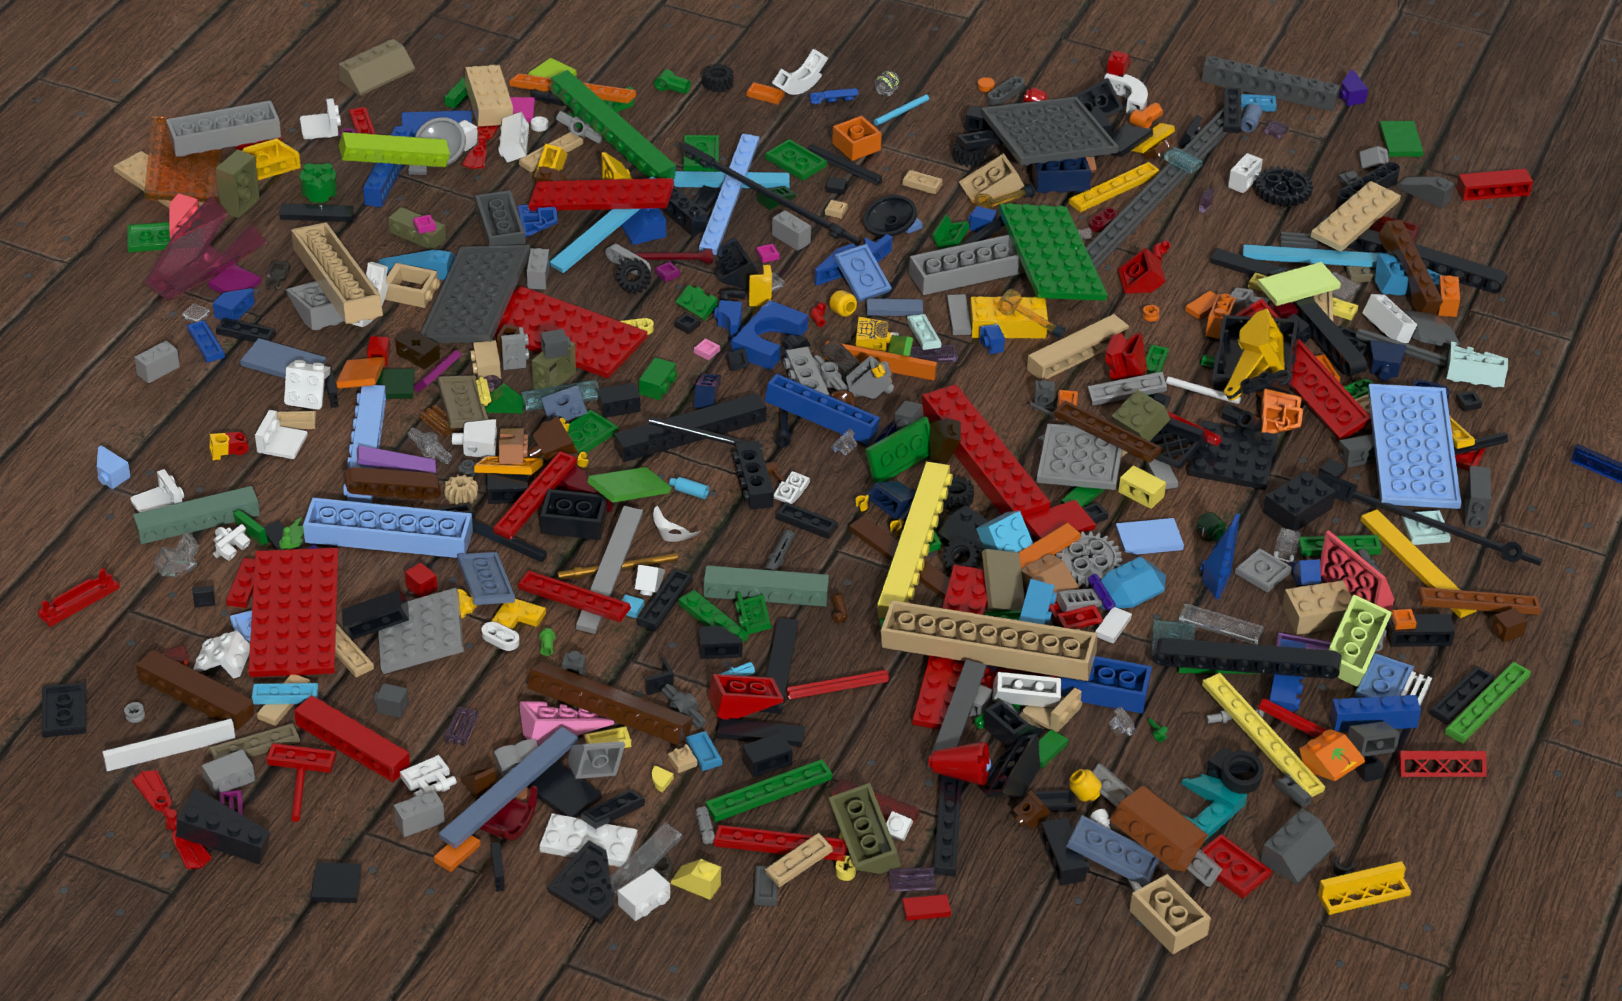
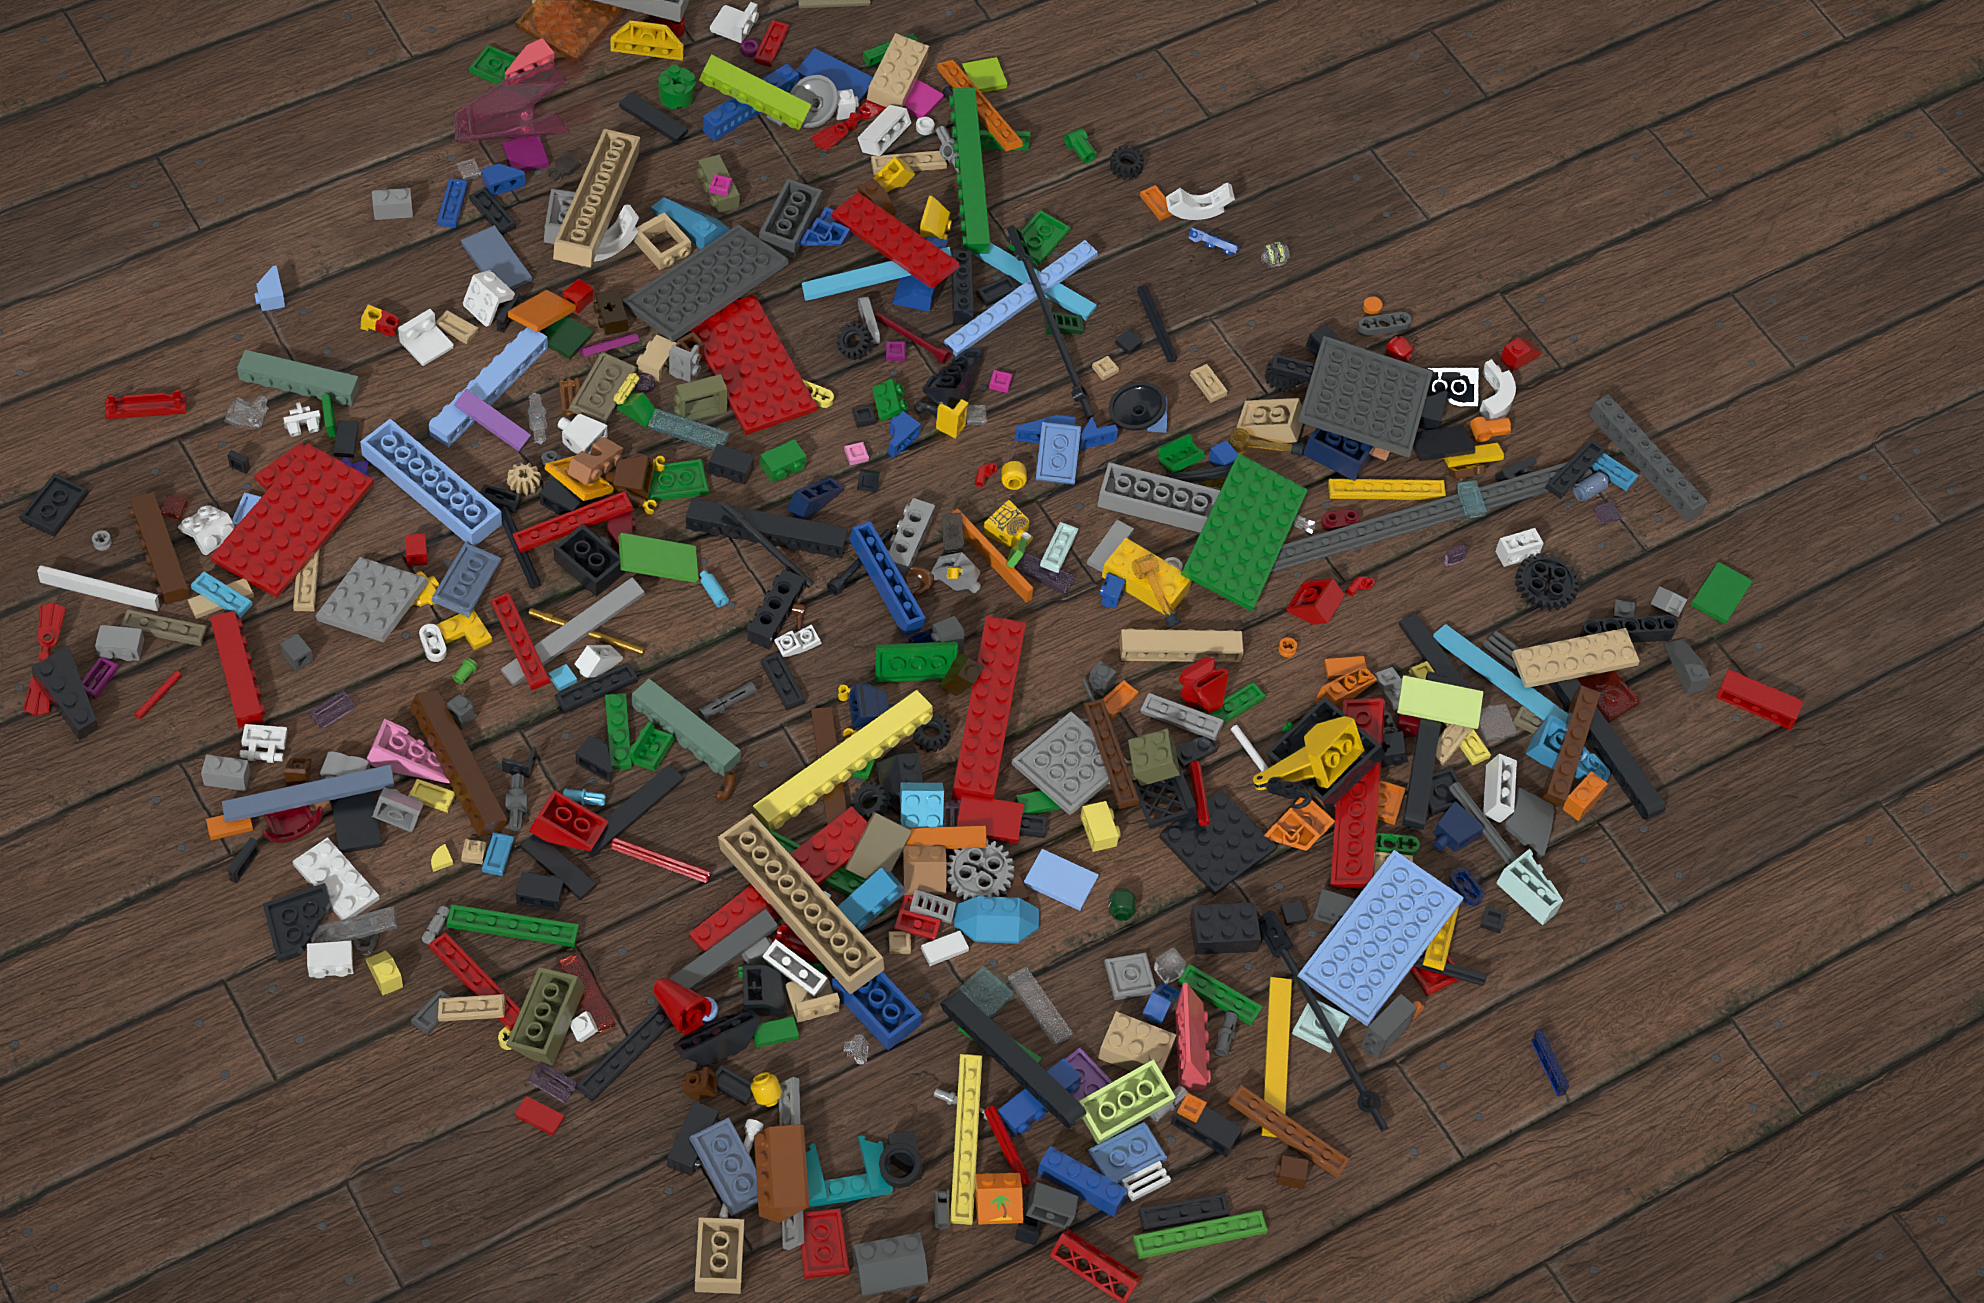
camera: 30 degrees right, 15 degrees up
(159, 497) = (283, 343): white bracket -> none
(237, 183) = (598, 55): olive brick -> none
(292, 536) = (349, 446): bright green piece -> none
(304, 757) = (185, 663): red plate -> none
(336, 882) = (117, 795): black tile -> none
(375, 614) = (345, 563): black brick -> none
(392, 483) = (467, 441): reddish brown beam -> none
(538, 269) = (782, 286): light grey brick -> none
(555, 344) = (703, 381): dark grey brick -> none
(565, 404) = (678, 443): sand blue brick -> none
(612, 809) = (374, 864): black tile -> none
(665, 527) = (658, 612): white piece -> none
(770, 318) = (935, 453): blue arch -> none
(791, 230) = (1038, 370): light grey brick -> none
(793, 342) = (931, 494): black piece -> none
(796, 159) = (1118, 292): green tile -> none
(830, 374) = (933, 536): light grey axle -> none
(844, 441) = (879, 621): clear tile -> none
(856, 138) = (1188, 302): orange brick -> none
(894, 307) = (1060, 505): sand blue tile -> none
(902, 109) = (1266, 290): medium azure bar -> none
(1101, 592) = (958, 911): dark purple axle -> none
(1159, 733) = (883, 1080): green hand -> none
(1163, 472) = (1133, 824): light grey tile -> none
(1220, 560) = (1085, 949): blue wedge -> none
(1240, 417) = (1257, 810): black piece -> none
(1353, 90) = (1724, 510): dark purple slope -> none

